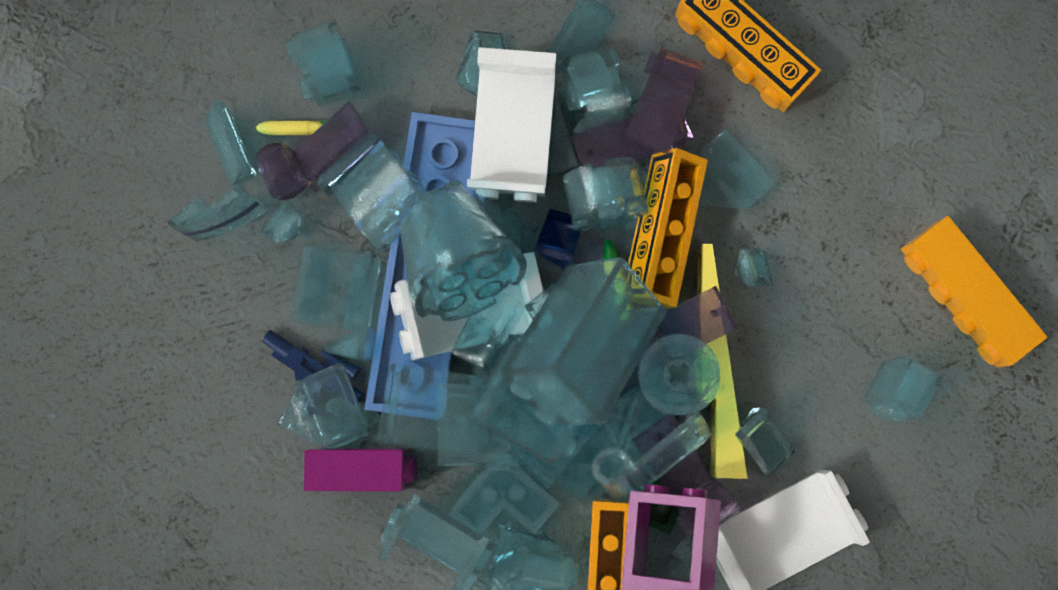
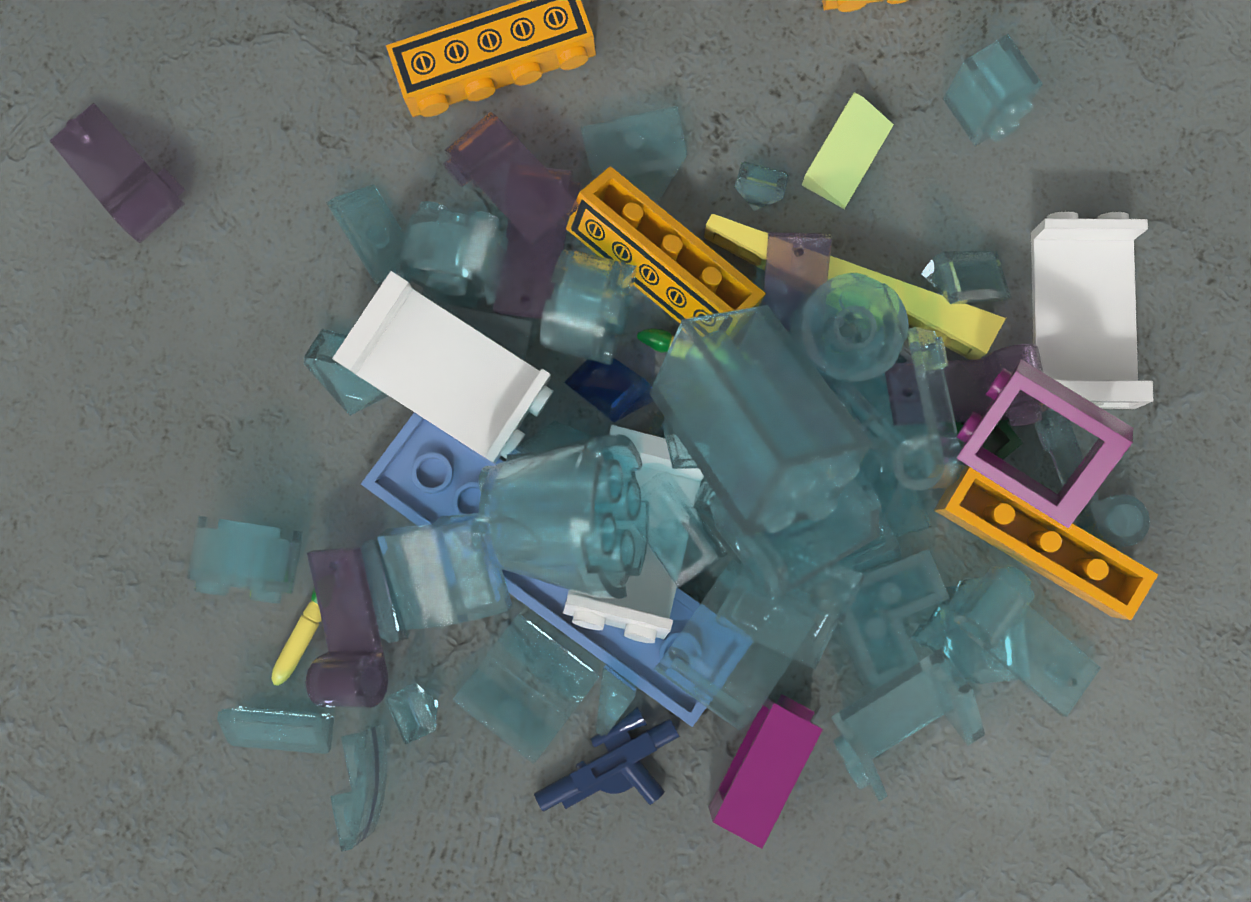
camera: 55 degrees left, 0 degrees up
(325, 409) = (668, 774): clear light blue slope -> none
(808, 315) = (848, 151): none -> yellowish green slope

